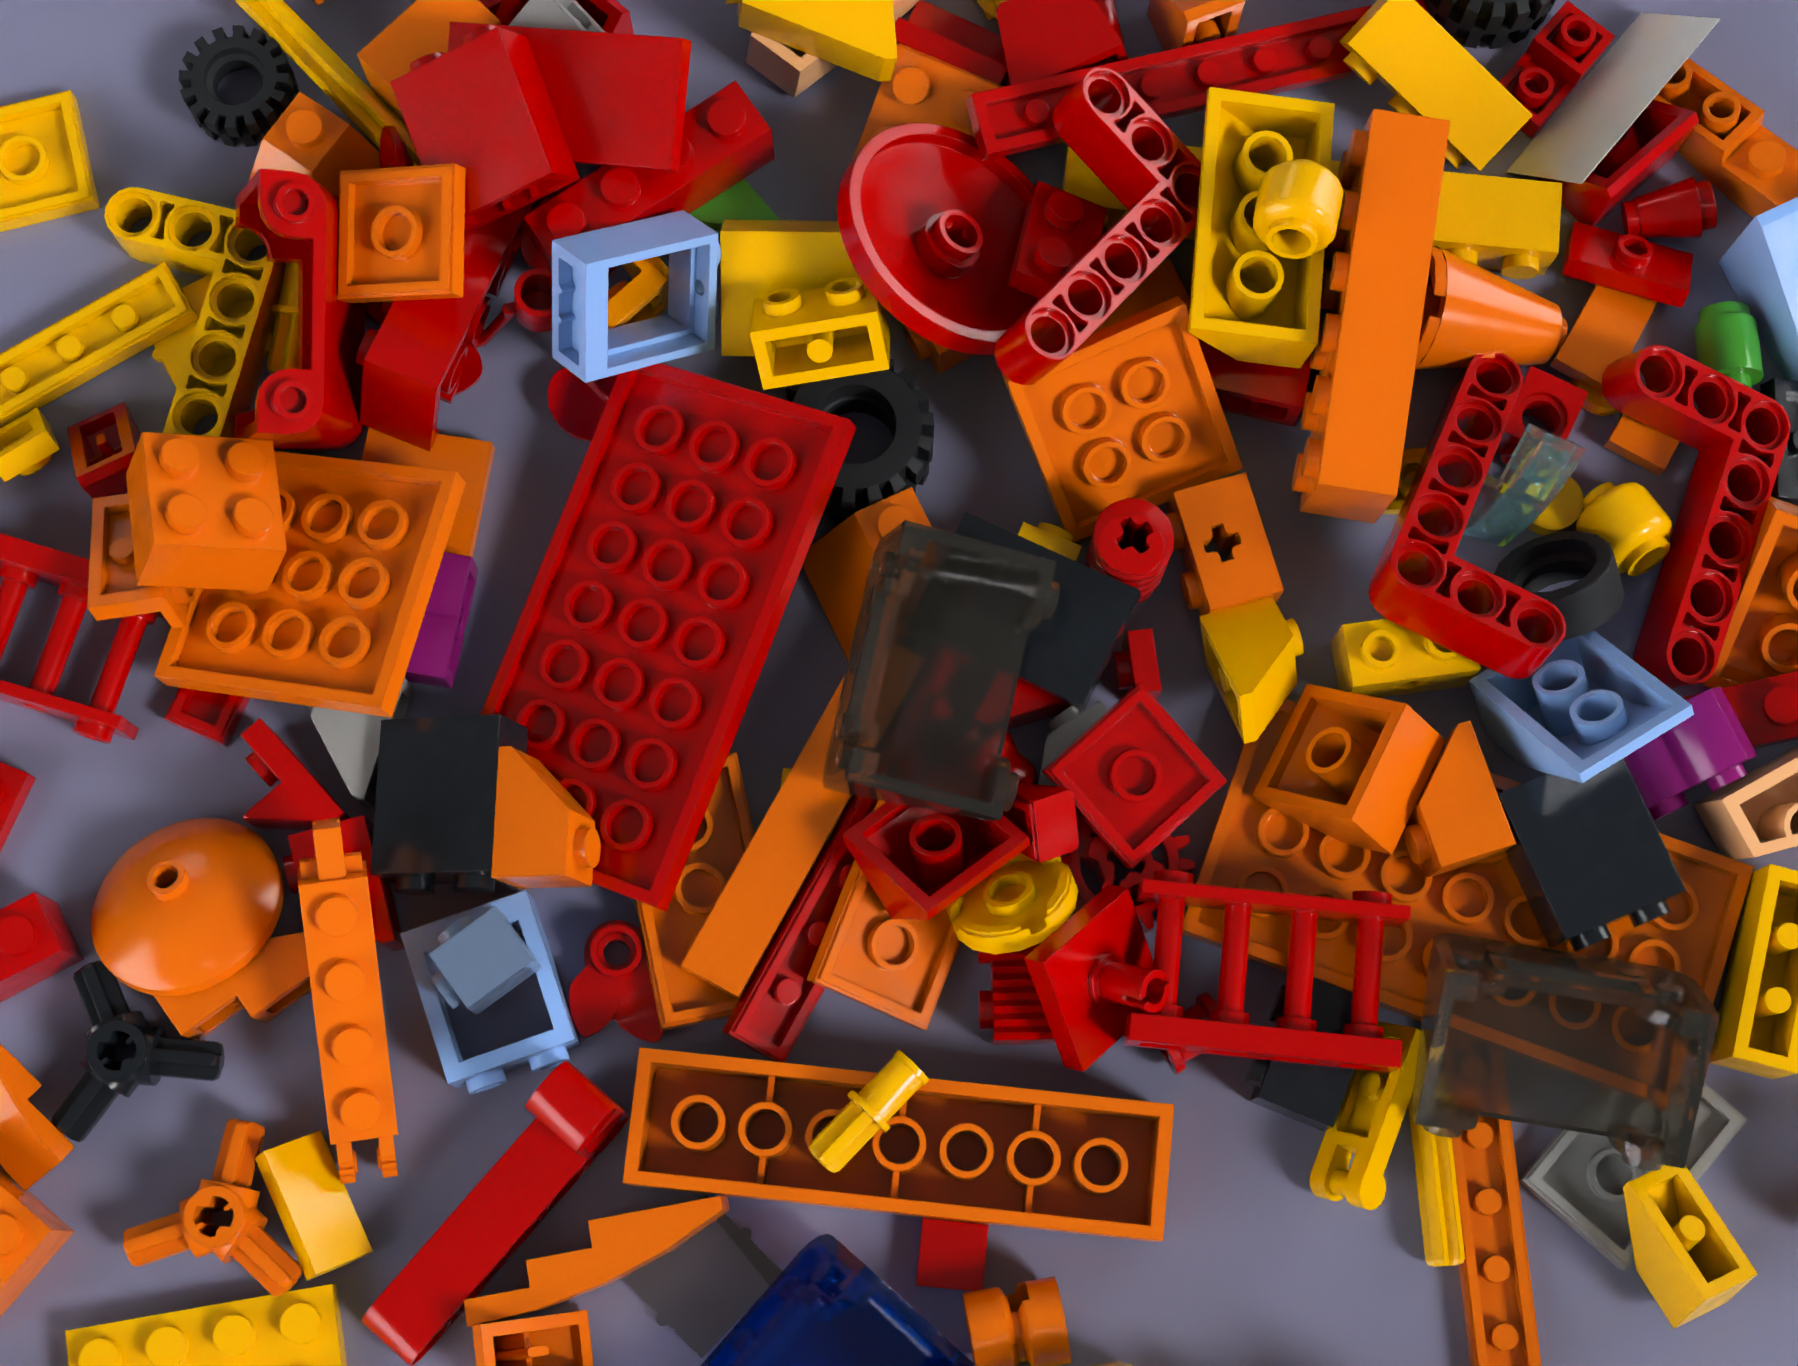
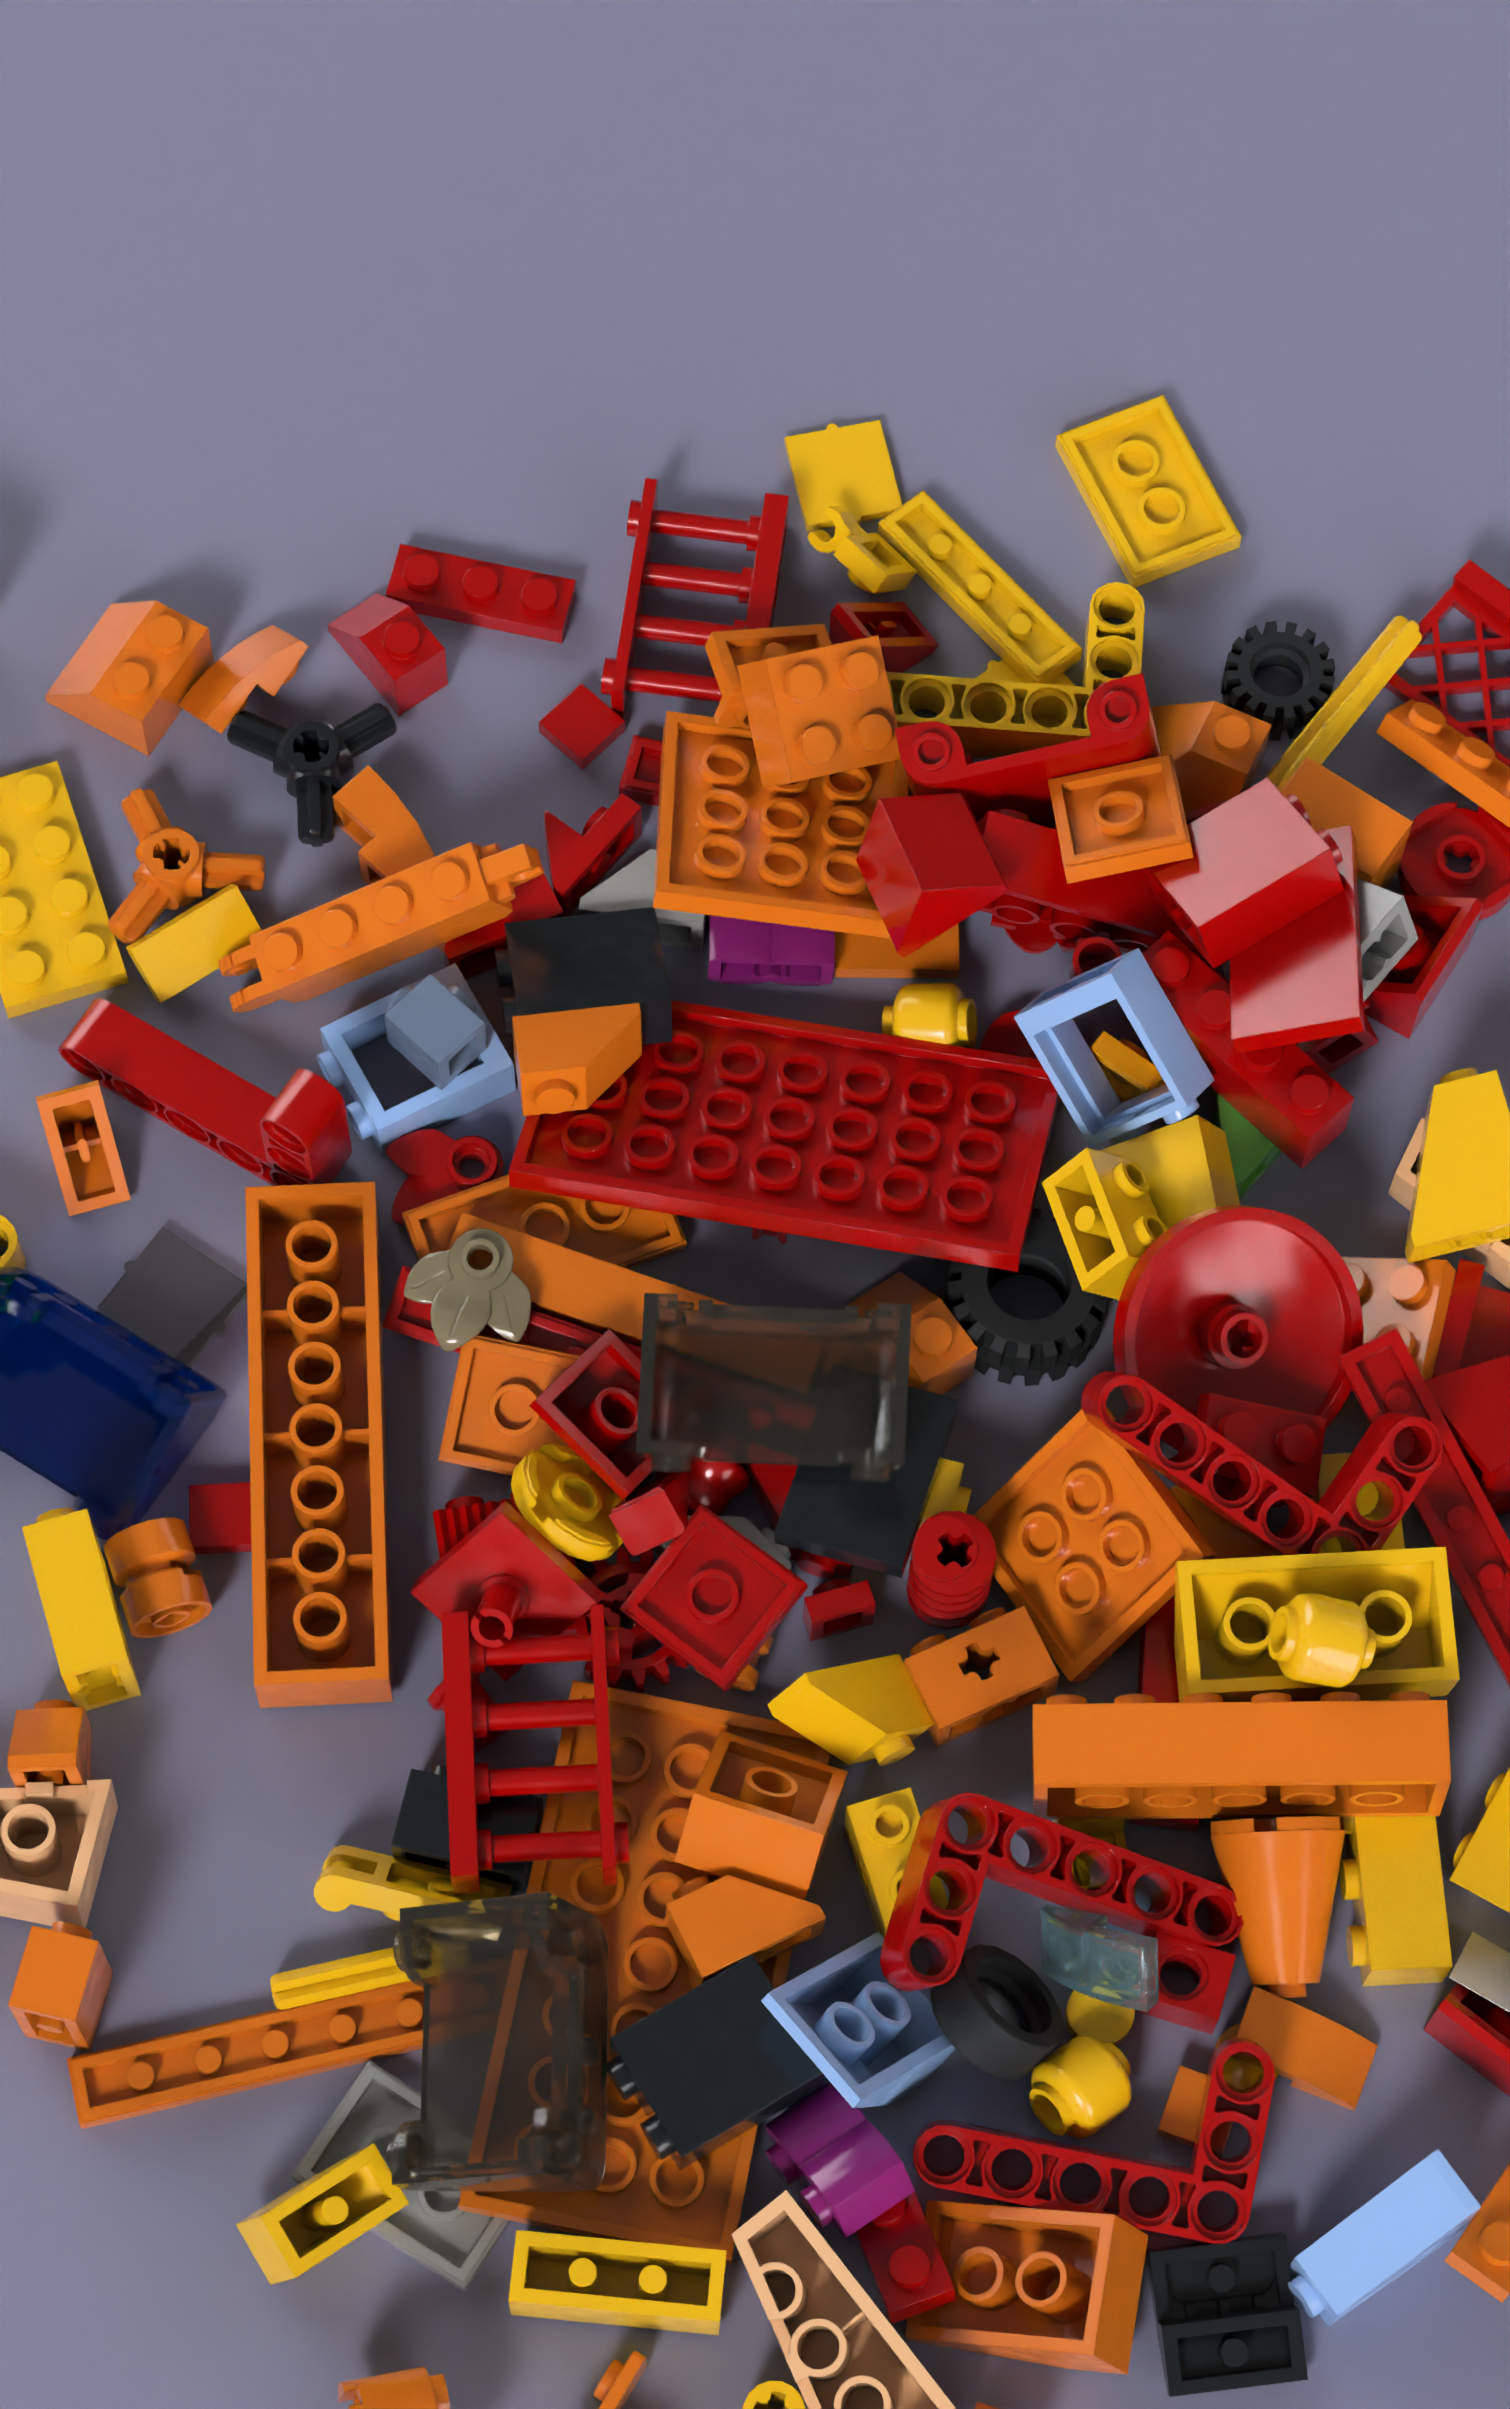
camera: 80 degrees right, 10 degrees down
(140, 770) = (581, 726): none -> red tile
(202, 924) = (455, 780): orange dish -> none
(412, 432) = (927, 866): none -> red slope
(543, 476) = (932, 1014): none -> yellow head
(618, 1248) = (182, 1203): orange slope -> none
(783, 970) = (471, 1298): none -> dark tan plate
(867, 1112) = (339, 1387): yellow axle -> none
(1628, 264) = (1386, 2064): red plate -> none
(1672, 211) = (1458, 2107): red cone -> none
(1729, 341) = (1309, 2183): bright green brick -> none

